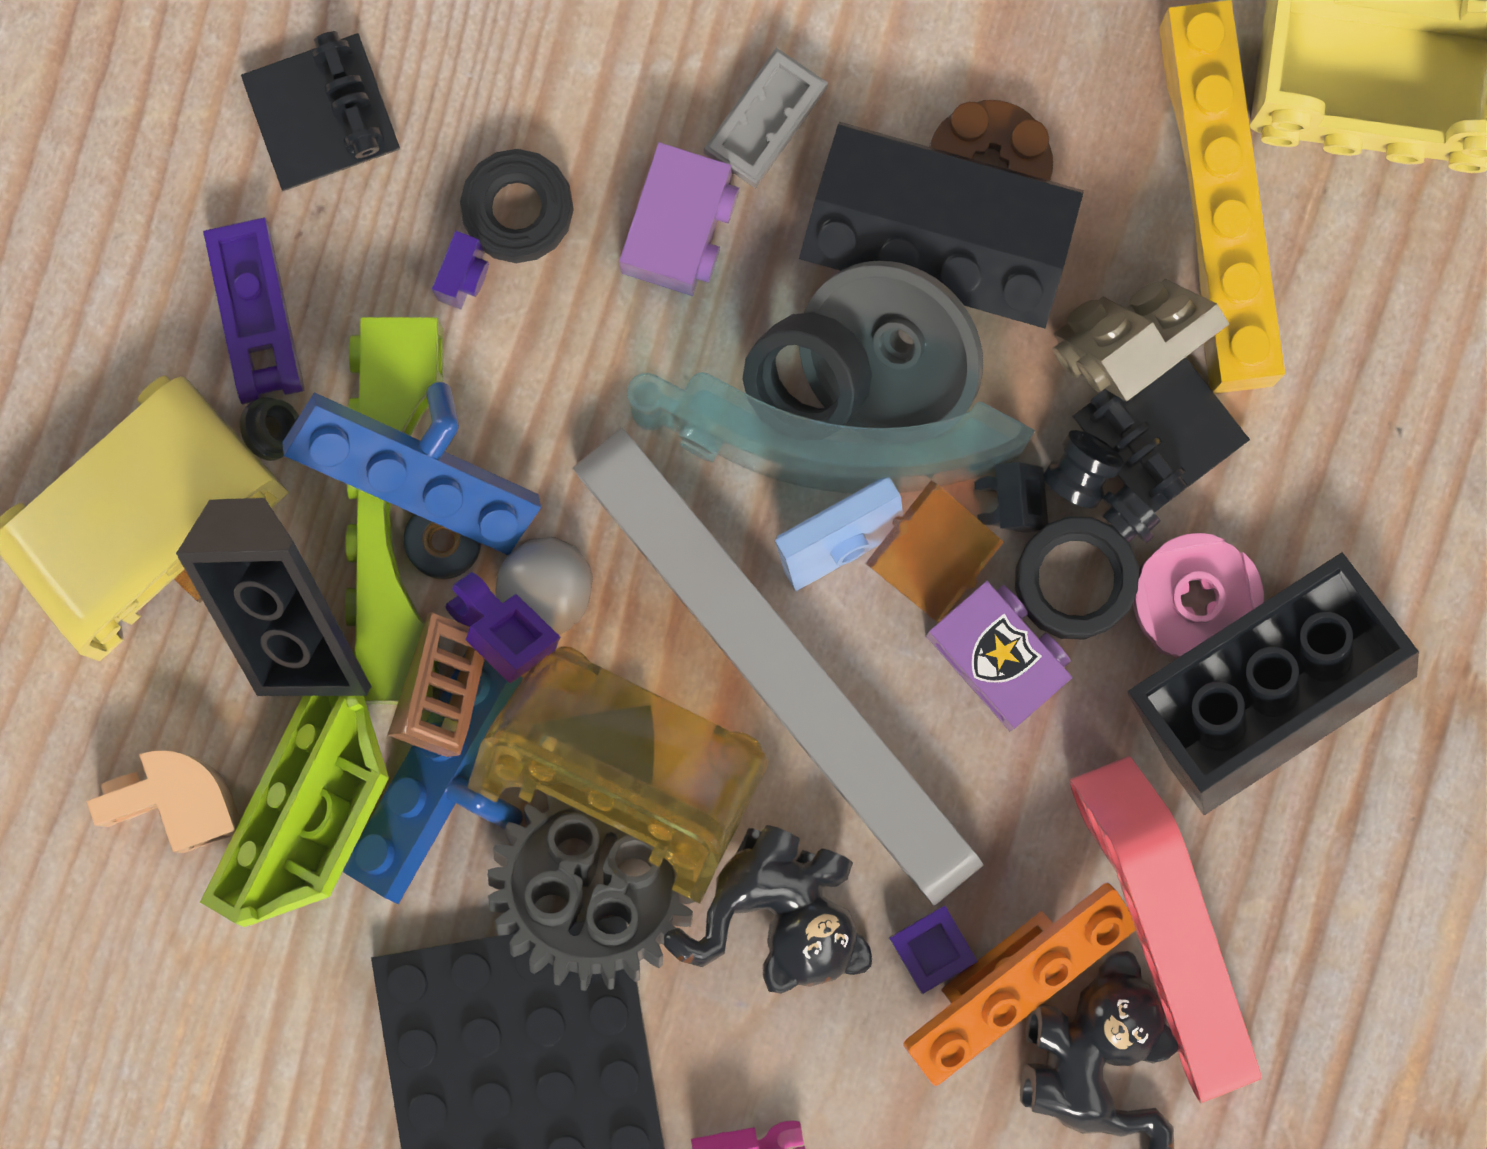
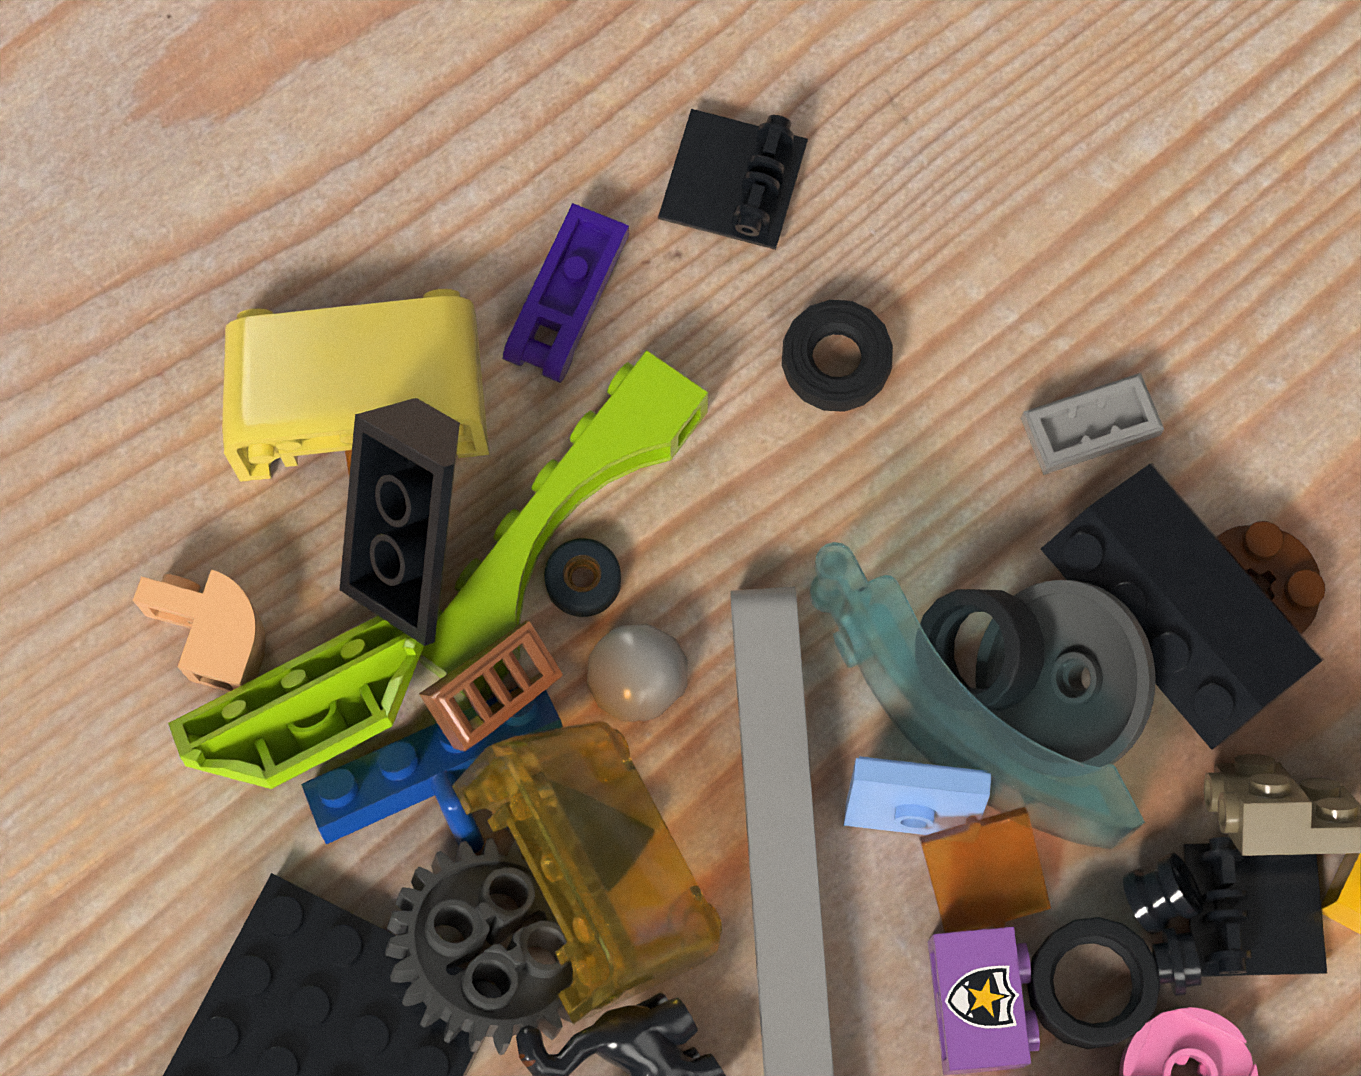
camera: 35 degrees right, 10 degrees down
(266, 414) = (523, 395): black plate -> none
(413, 471) = (598, 498): blue plate -> none
(461, 271) = (754, 373): dark purple plate -> none
(503, 633) = (575, 682): dark purple plate -> none
(677, 220) = (961, 454): medium lavender brick -> none
(1020, 497) = (1090, 879): black tile -> none

